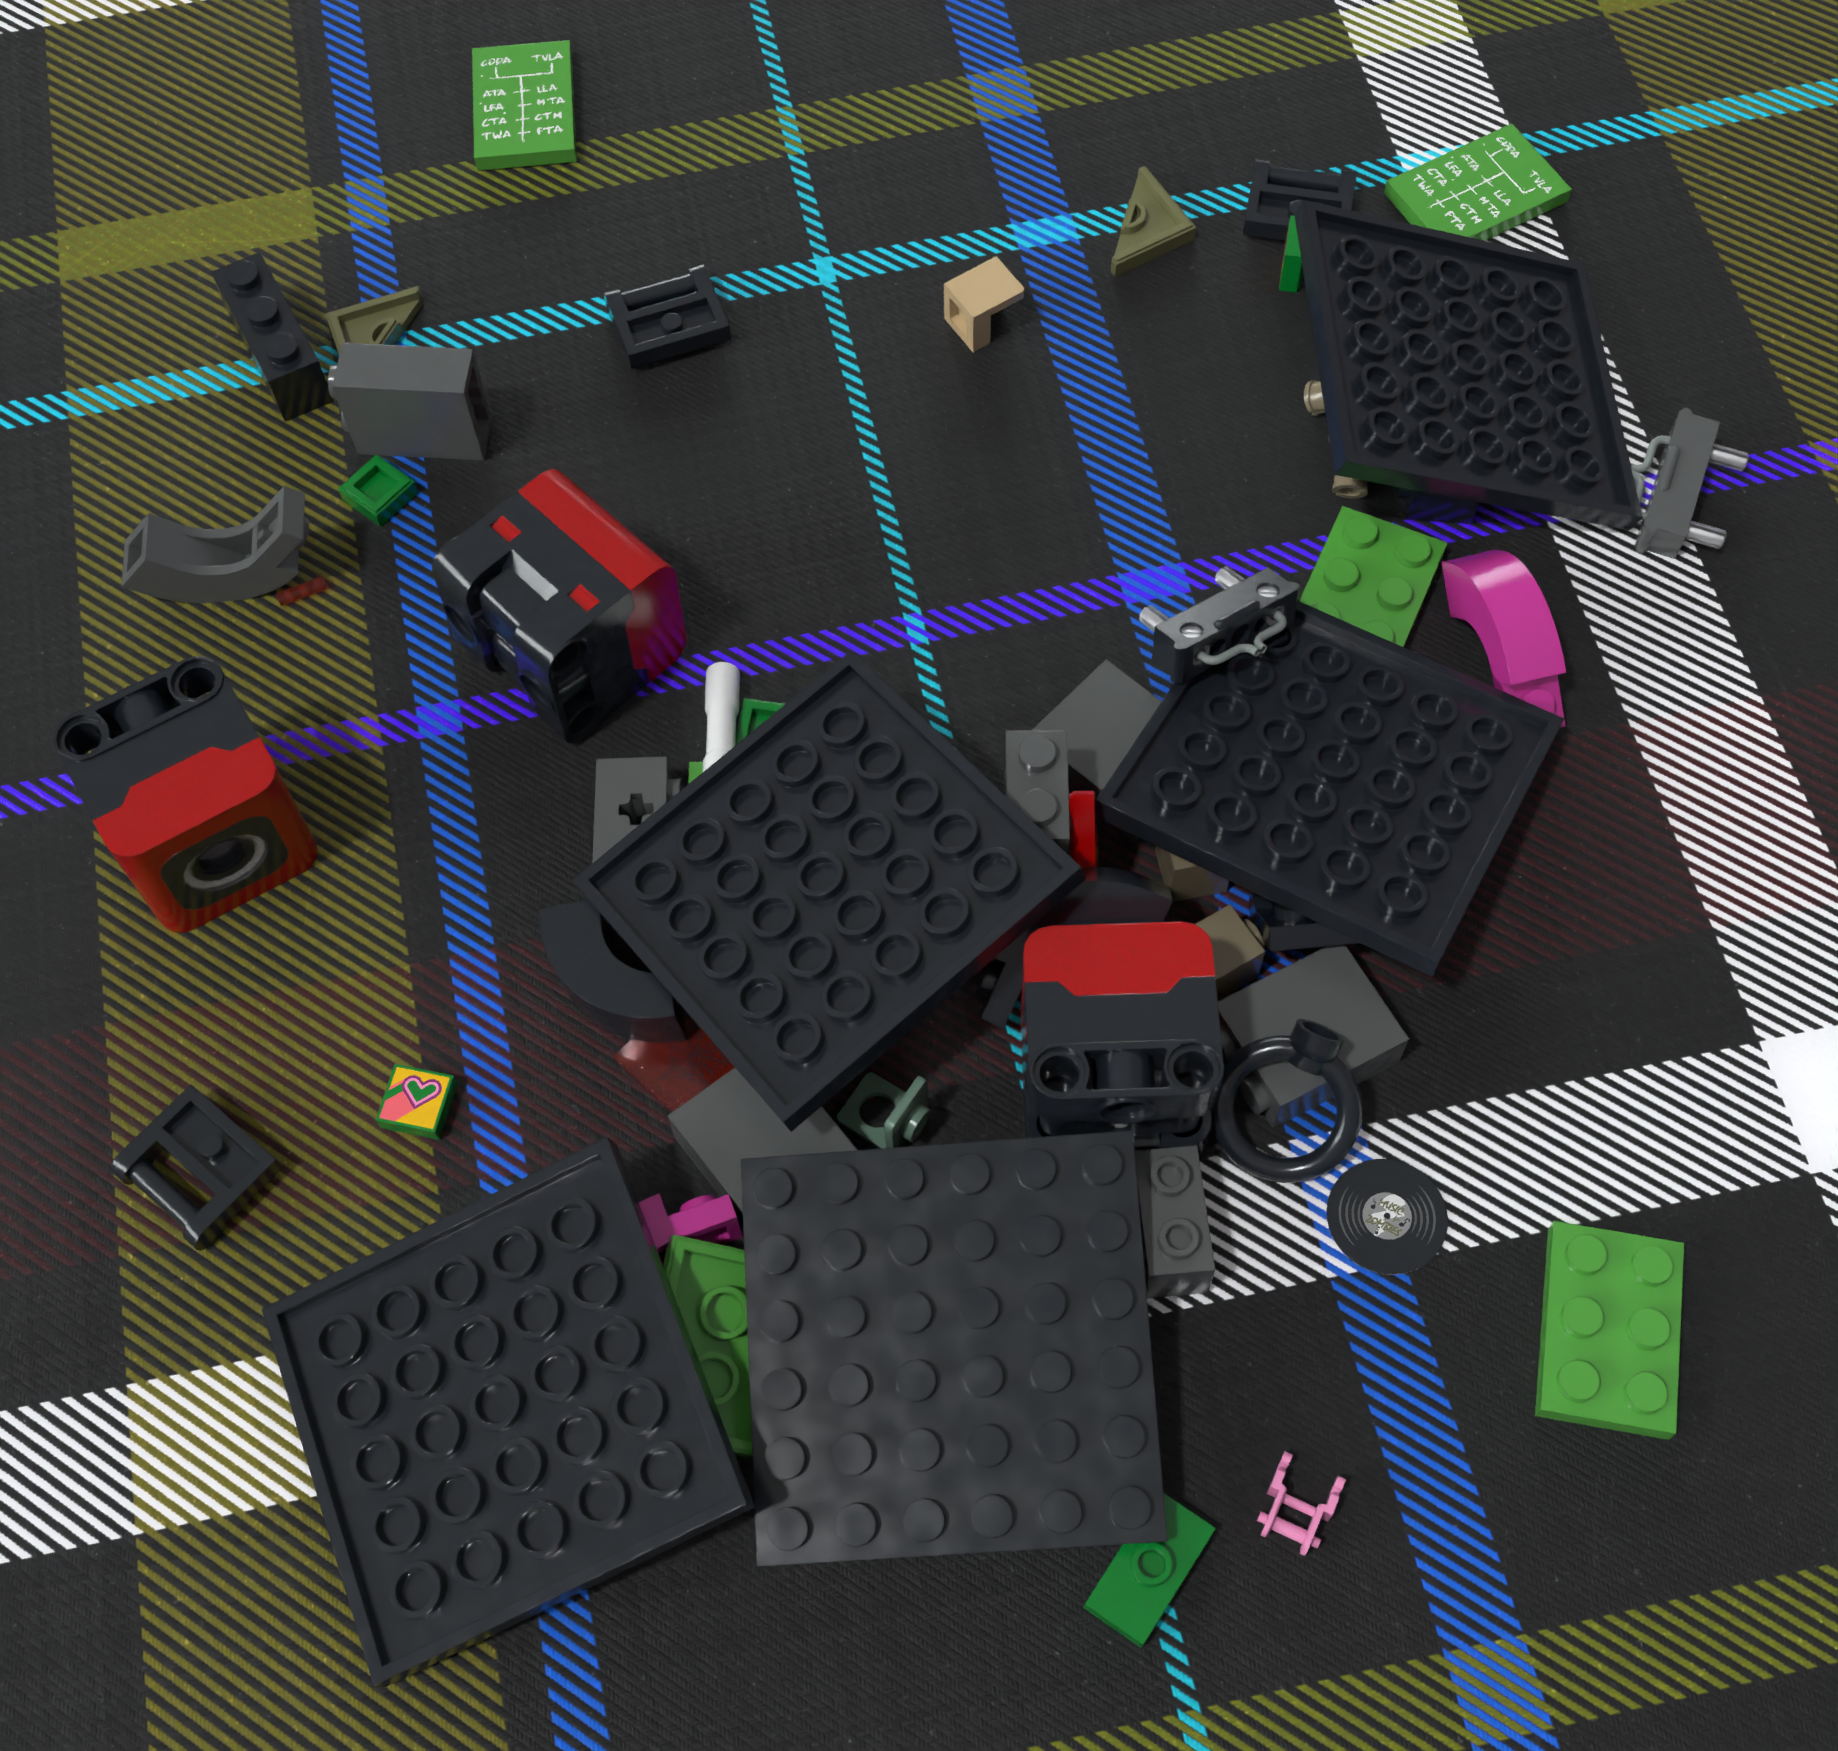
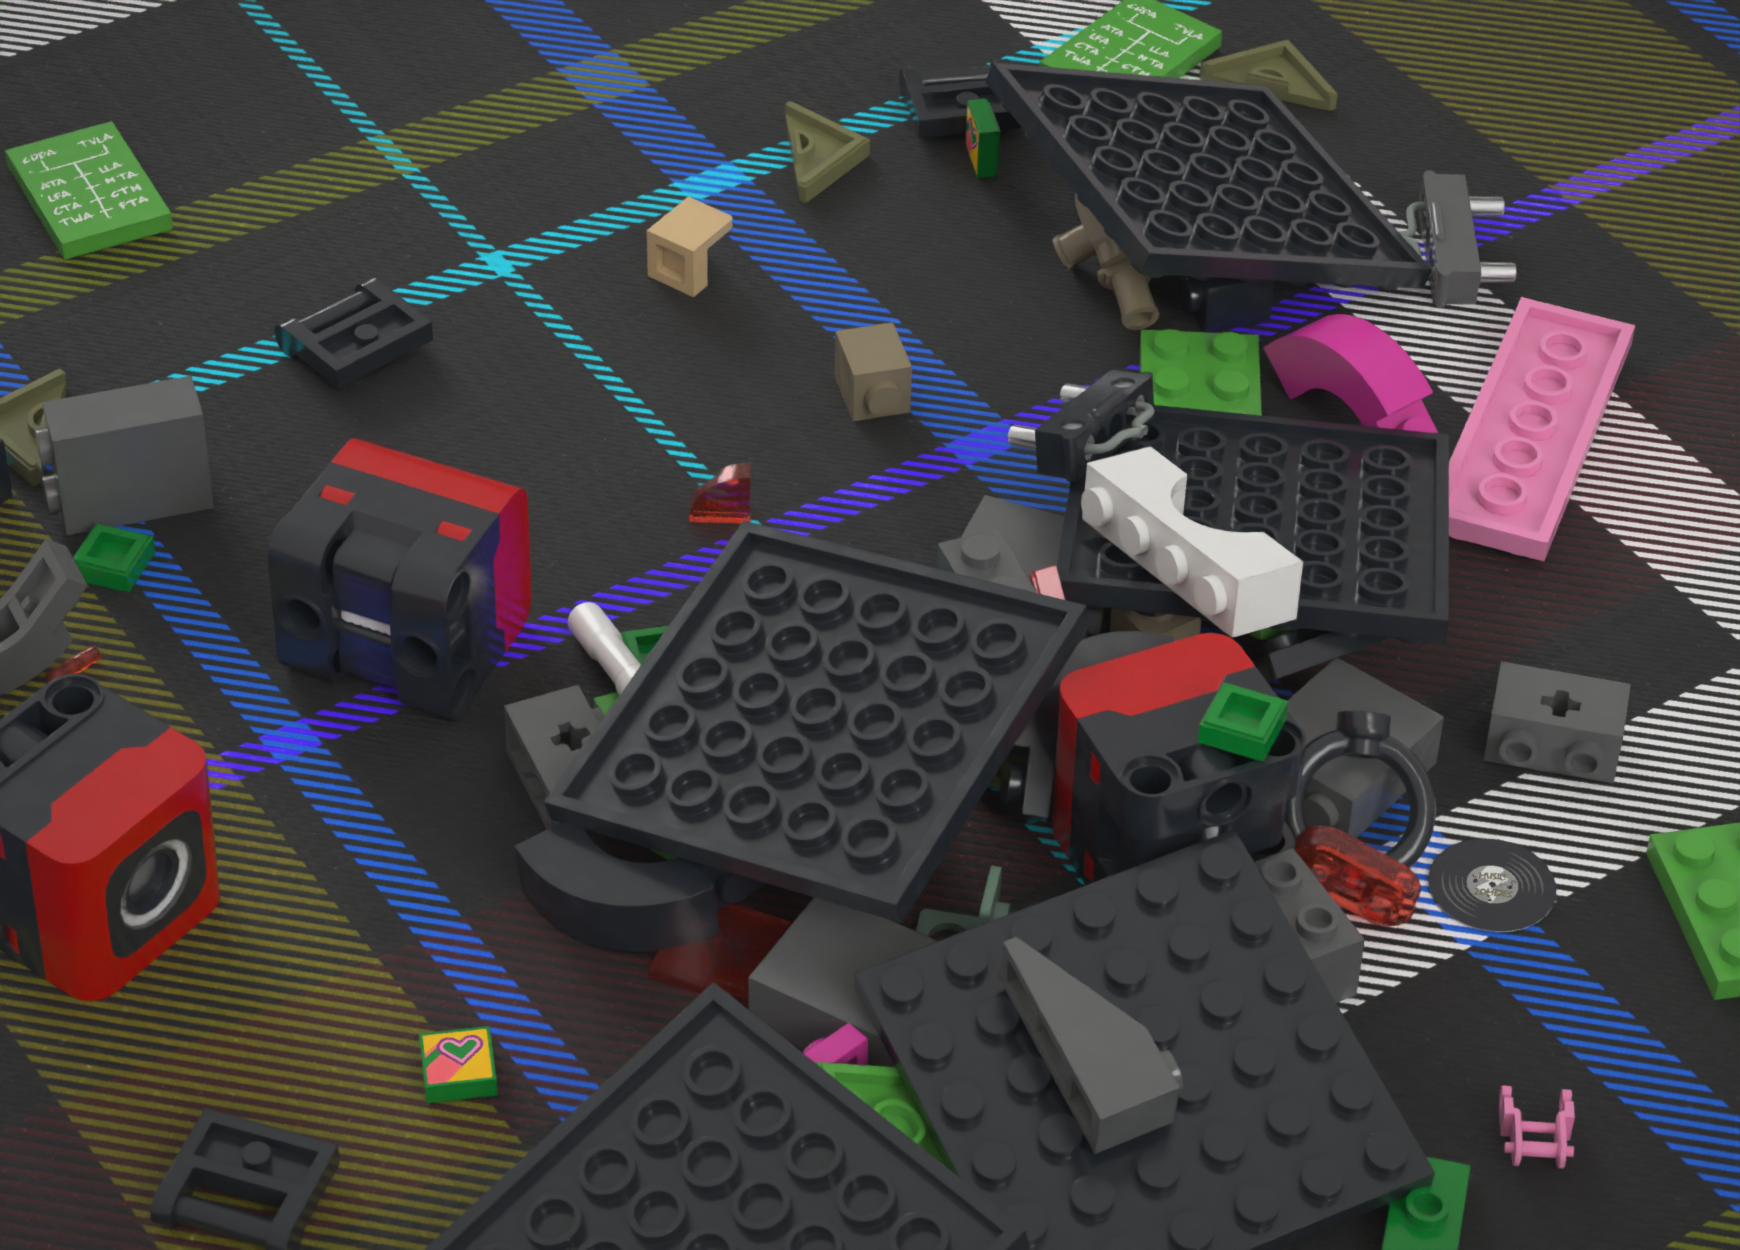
camera: 25 degrees left, 20 degrees down
(894, 582) = (724, 497): none -> clear red tile
(897, 1341) = (1093, 1050): none -> dark grey slope
(1080, 485) = (873, 371): none -> dark tan brick
(1167, 1043) = (1243, 721): none -> green tile
(1236, 1167) = (1359, 876): none -> clear red plate
(1246, 861) = (1227, 576): none -> white arch
(1553, 1065) = (1557, 722): none -> dark grey brick
(1603, 244) = (1279, 68): none -> olive tile
(1658, 722) = (1533, 426): none -> bright pink plate

